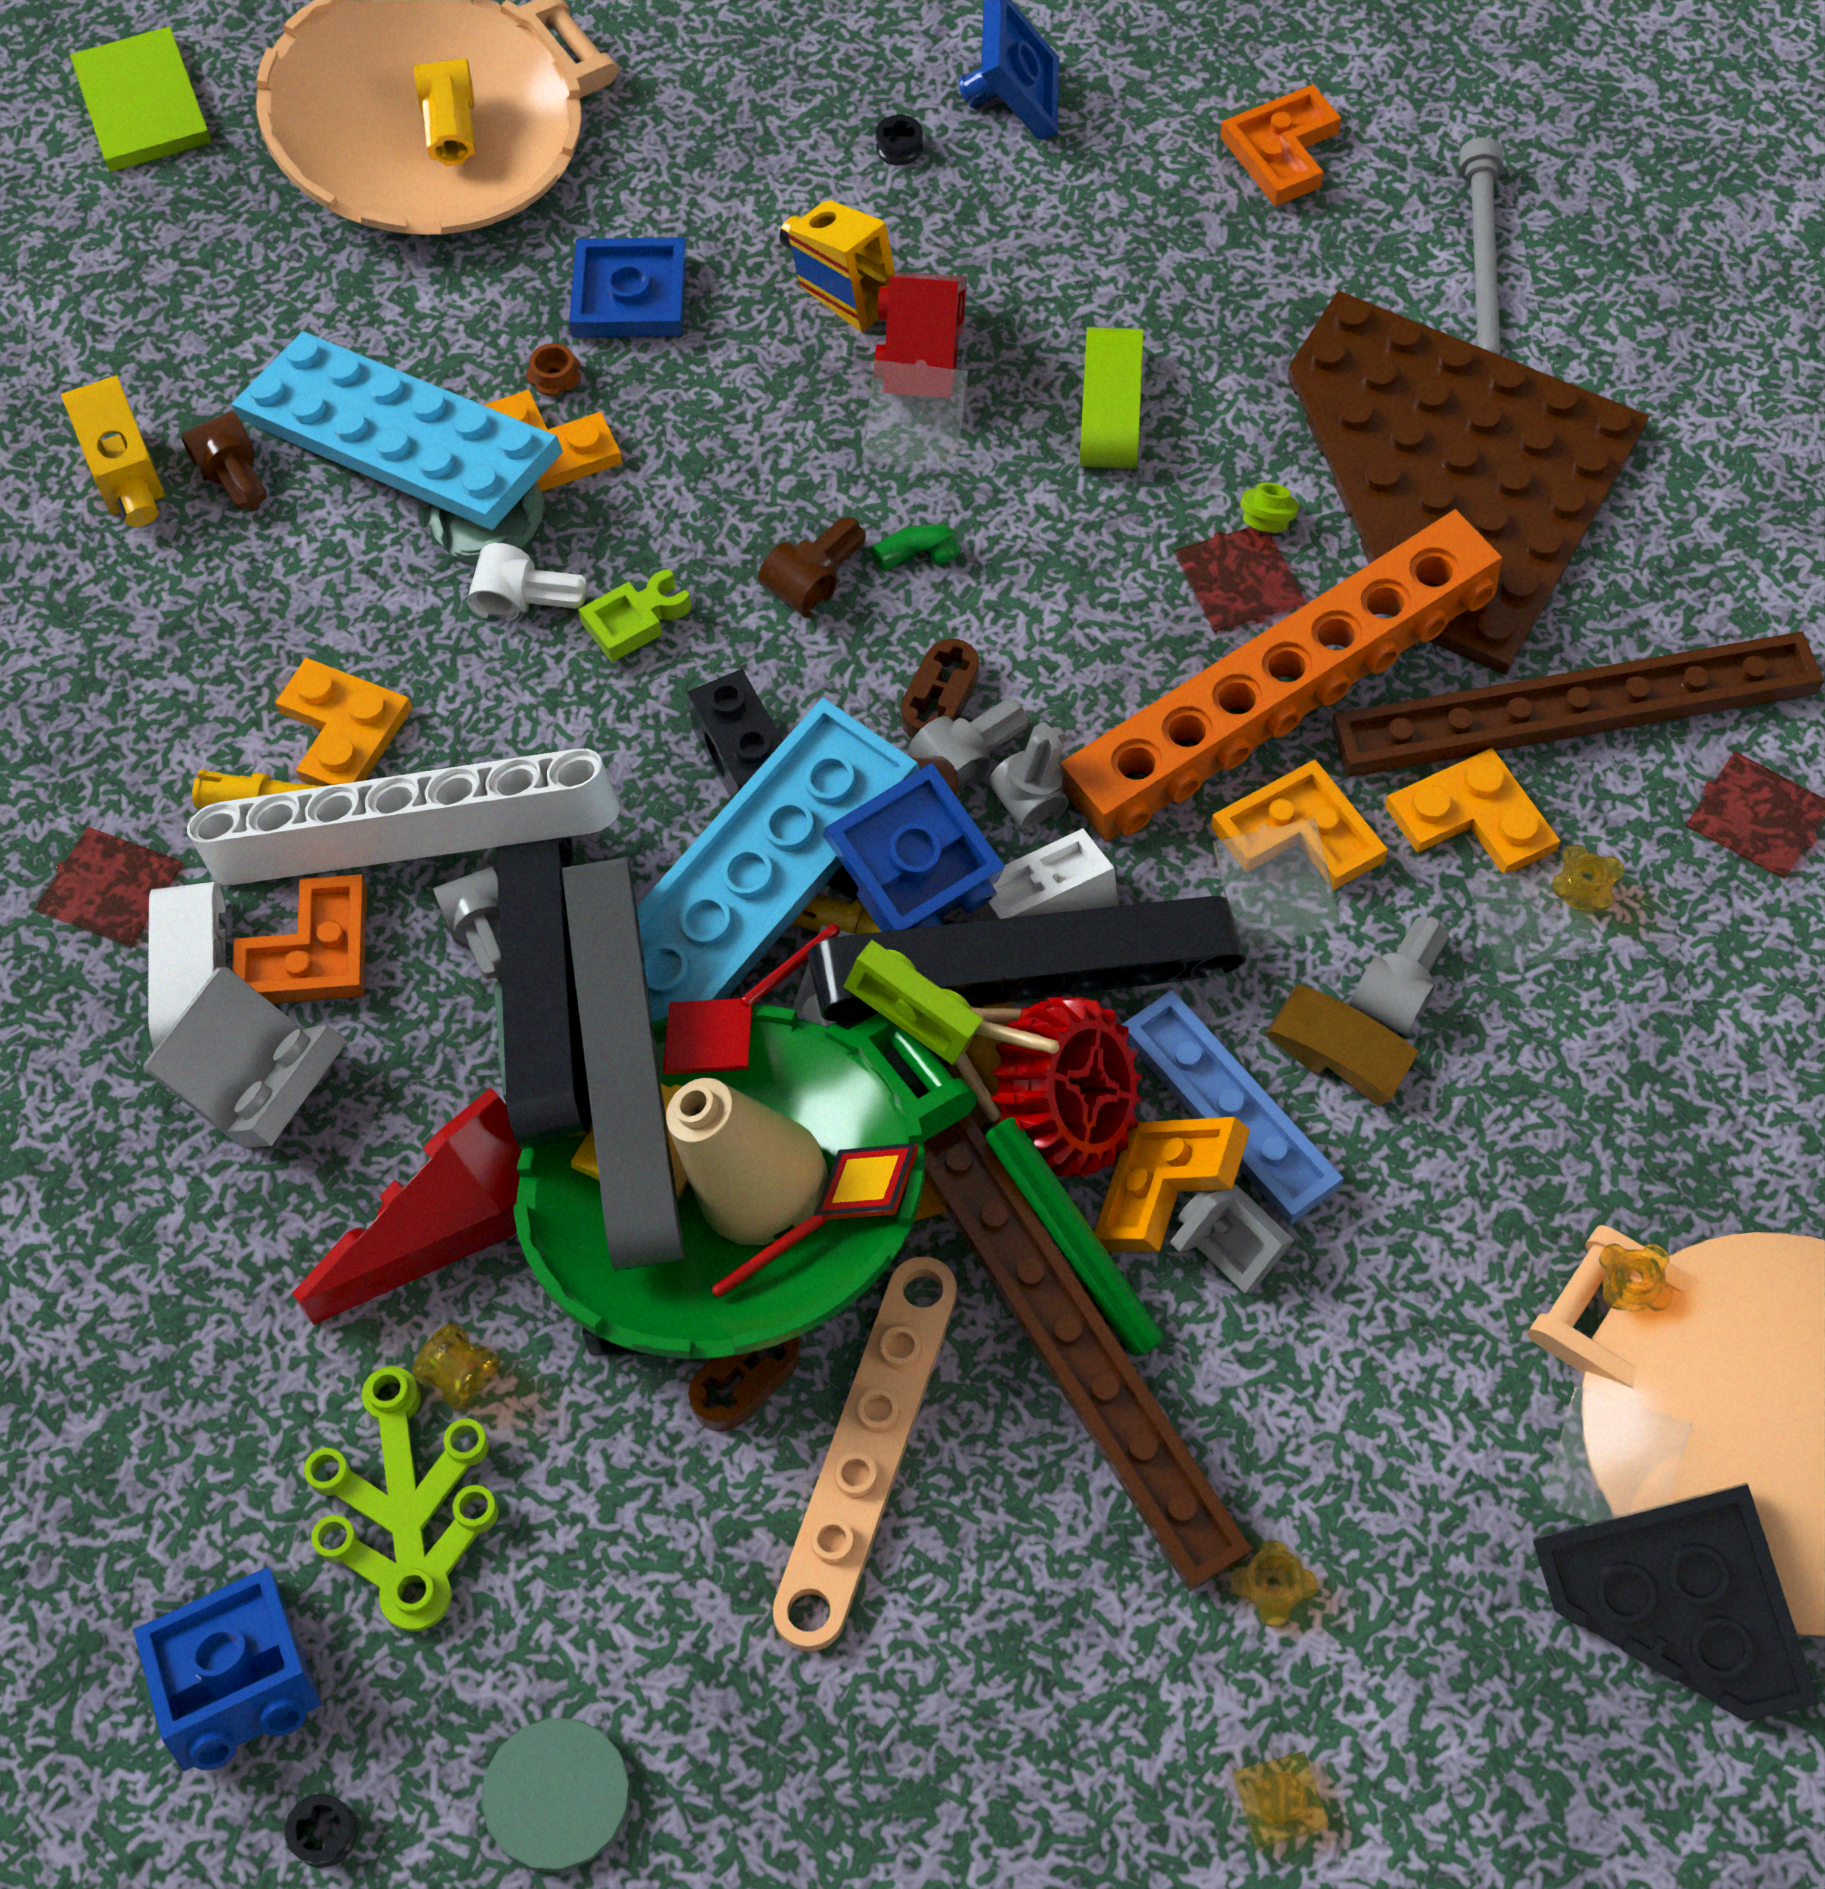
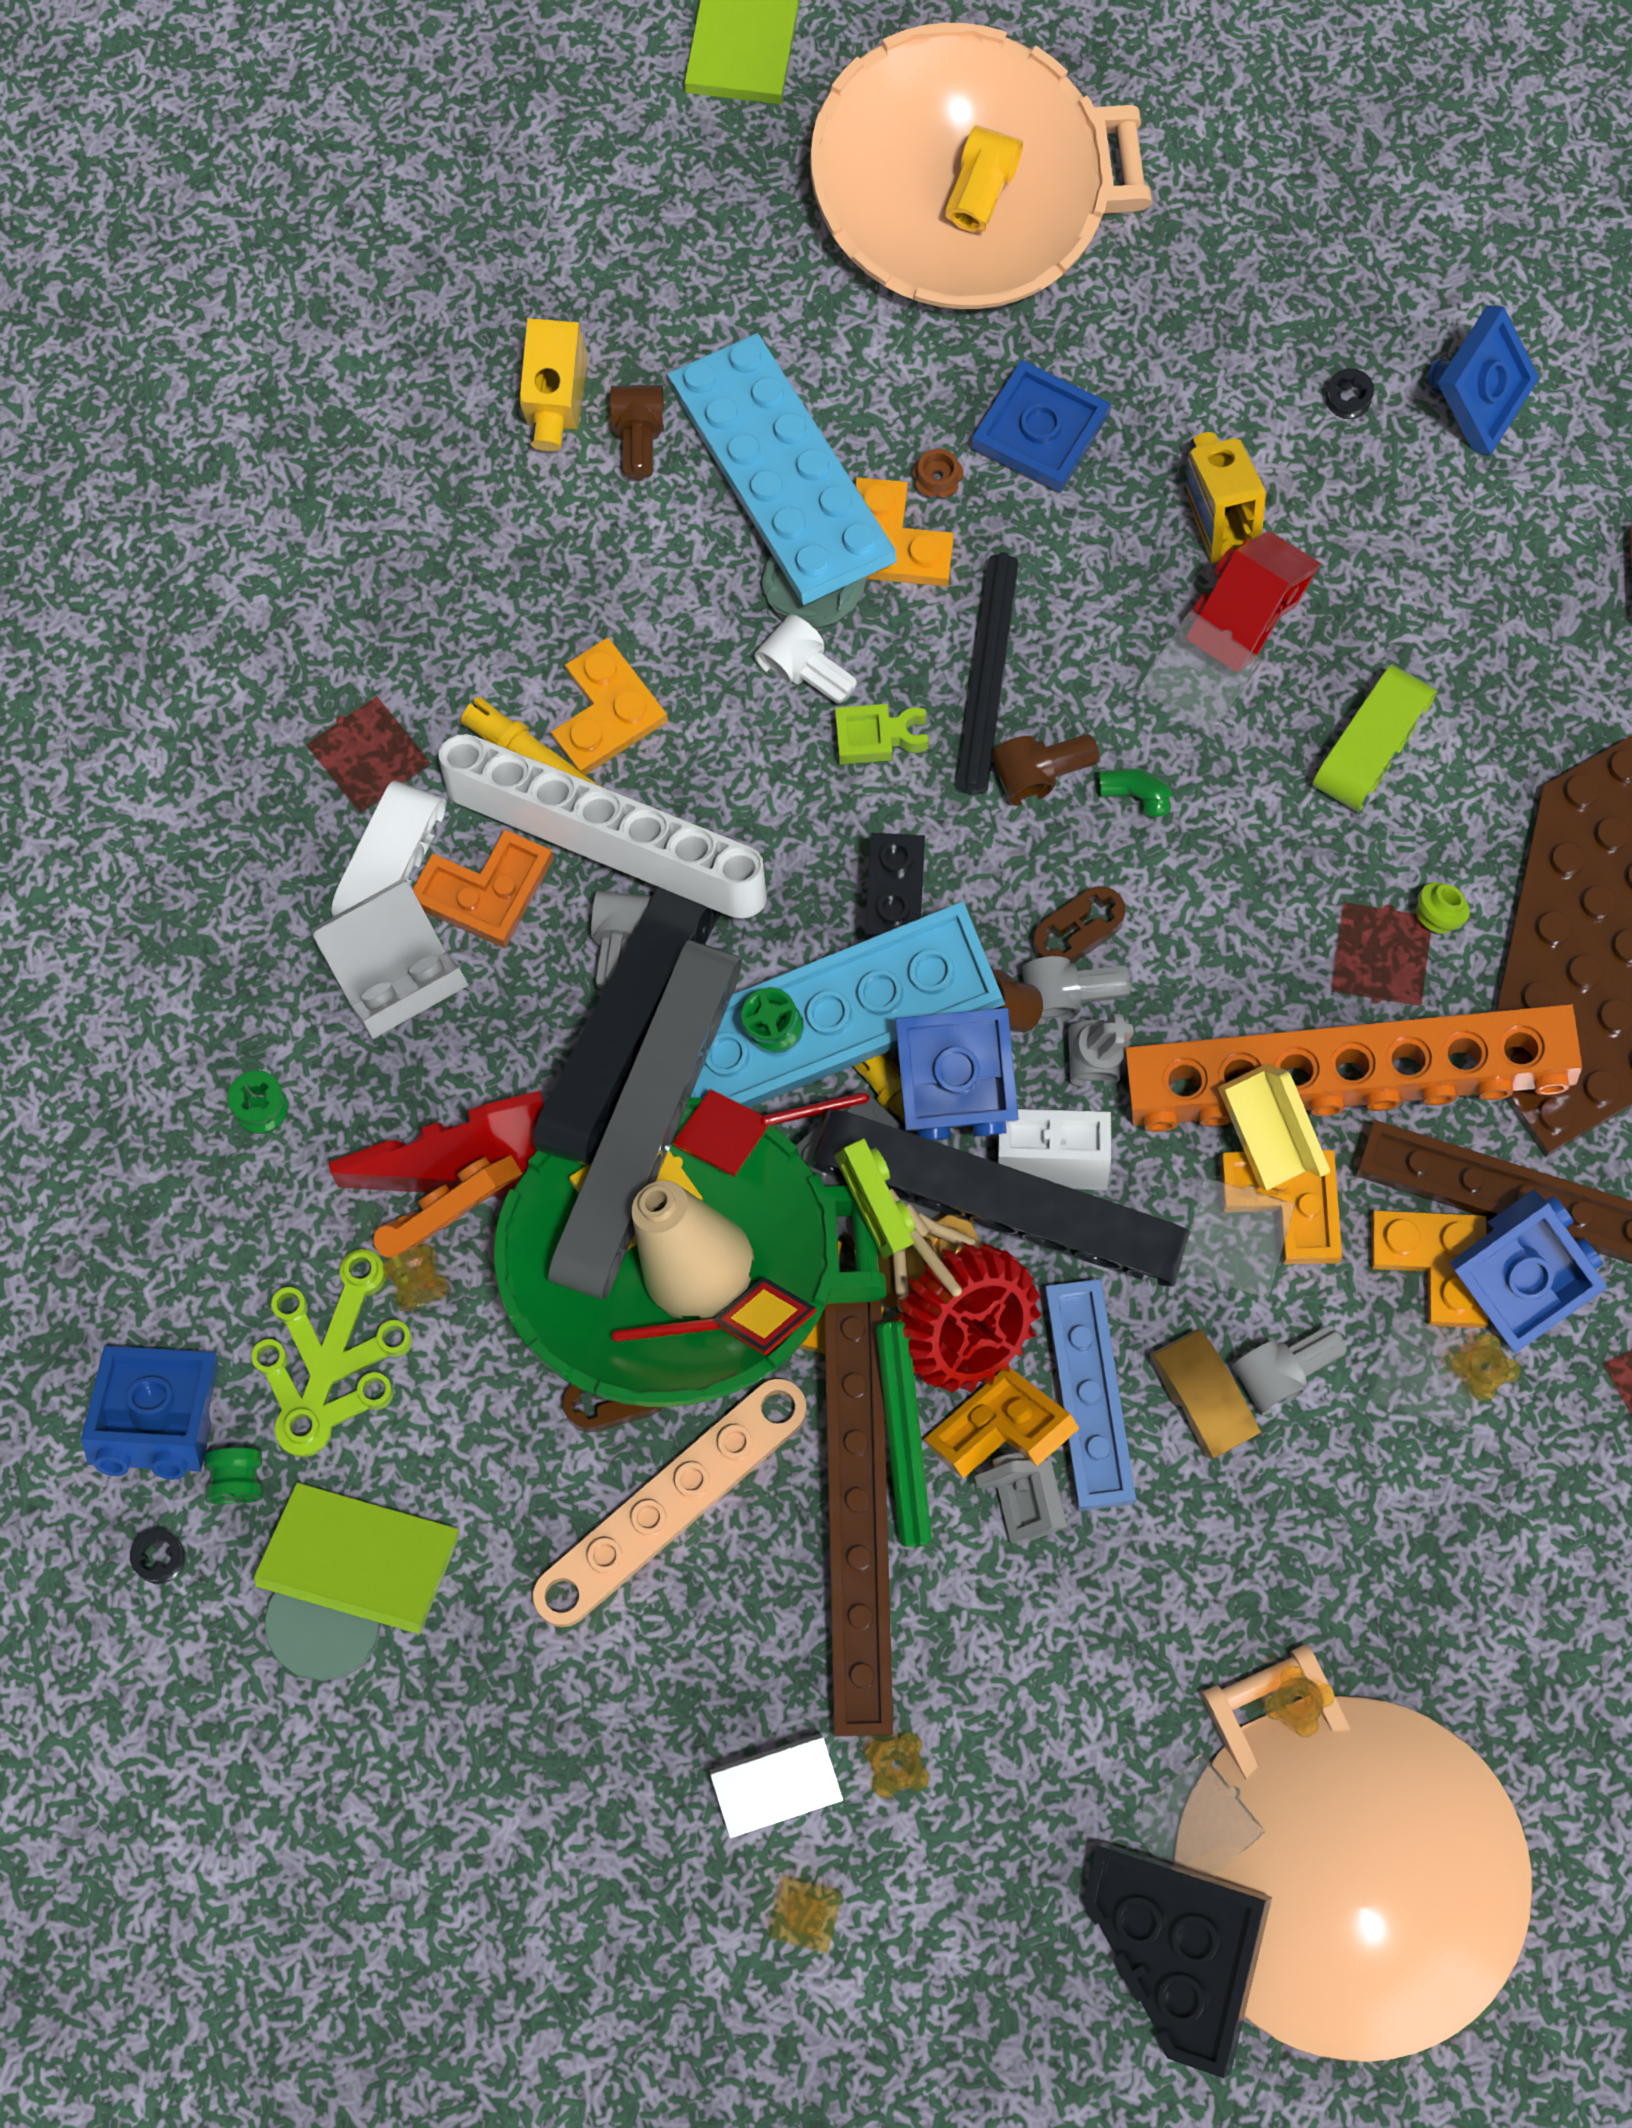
camera: 30 degrees right, 10 degrees up
(183, 1295) = (265, 1112): none -> green wheel
(363, 1688) = (233, 1476): none -> green wheel
(449, 1268) = (445, 1206): none -> orange plate
(556, 1698) = (357, 1558): none -> lime tile
(692, 887) = (765, 1009): none -> green wheel
(710, 517) = (987, 674): none -> black axle
(1162, 1676) = (776, 1785): none -> white hinge
(1254, 751) = (1273, 1126): none -> light yellow panel
(1571, 765) = (1530, 1270): none -> plate

